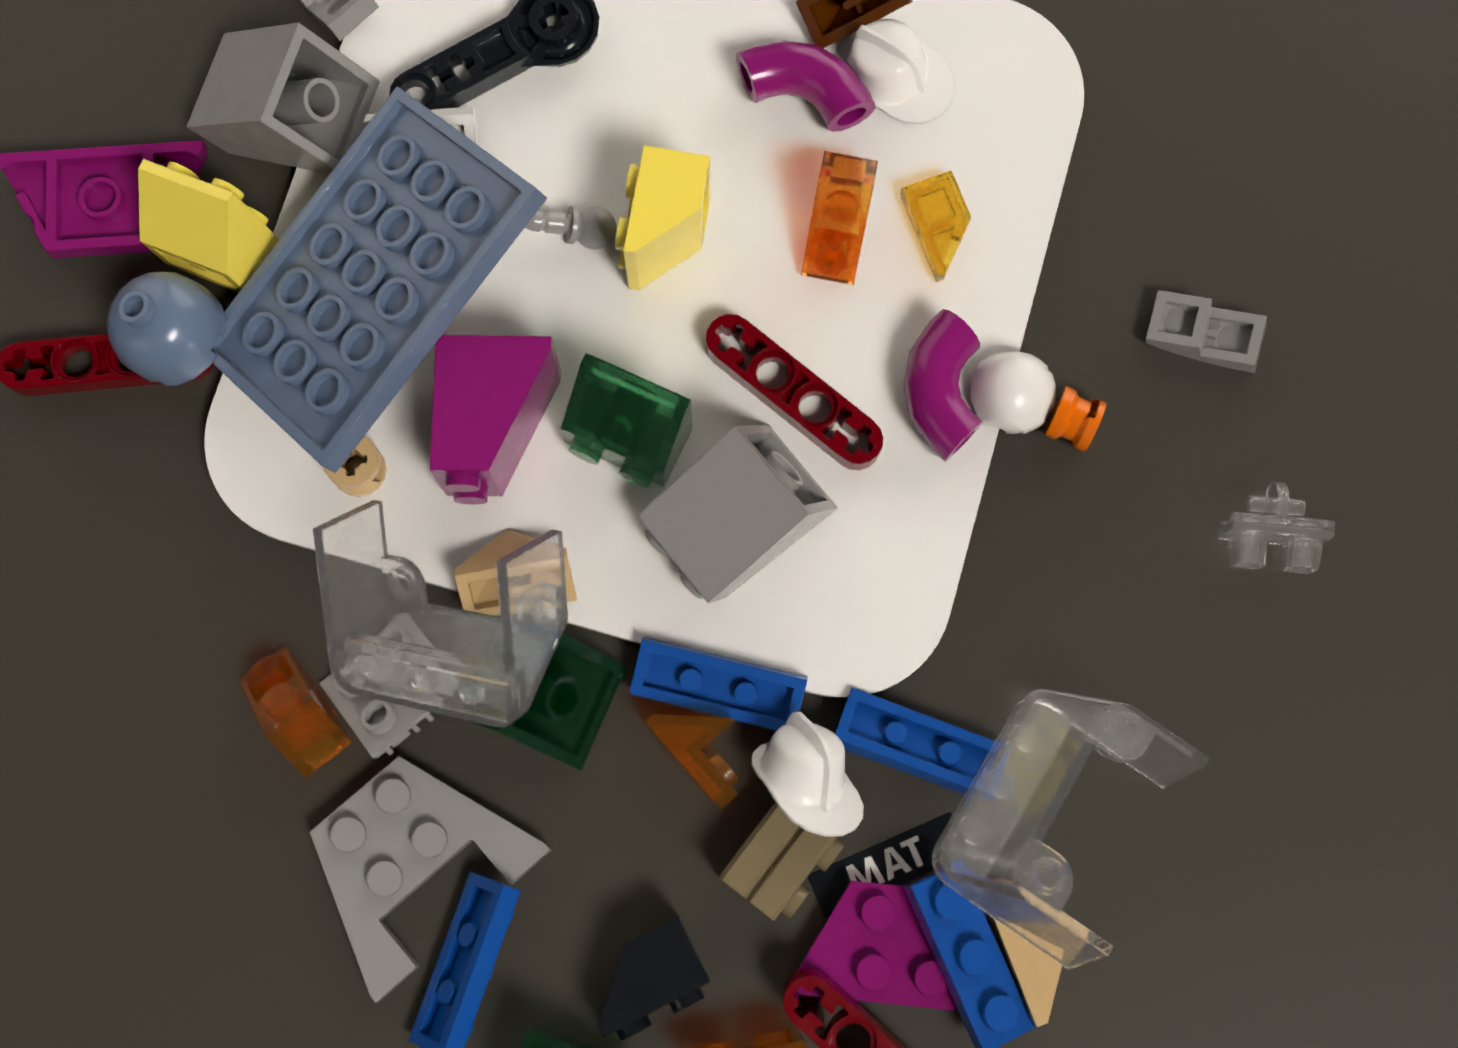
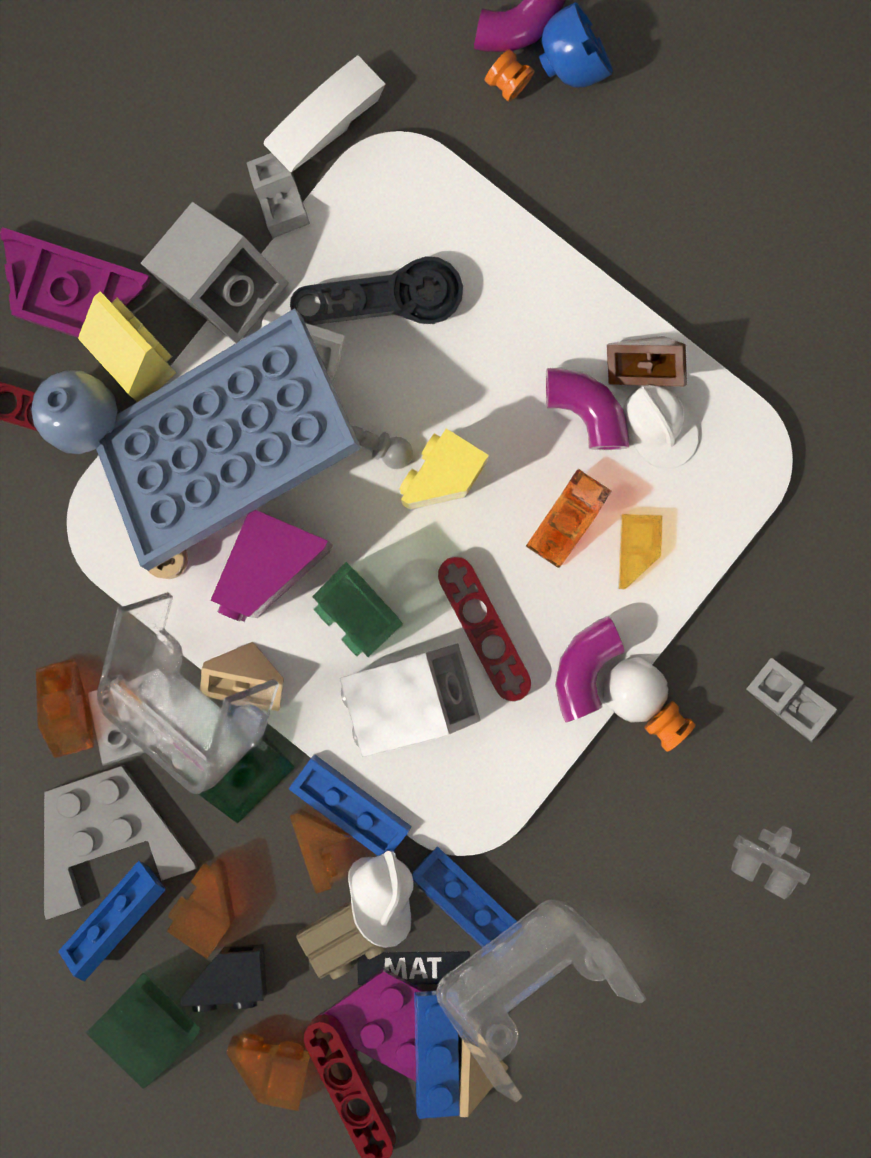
camera: 30 degrees right, 10 degrees up
(587, 898) = (208, 911): none -> clear orange slope

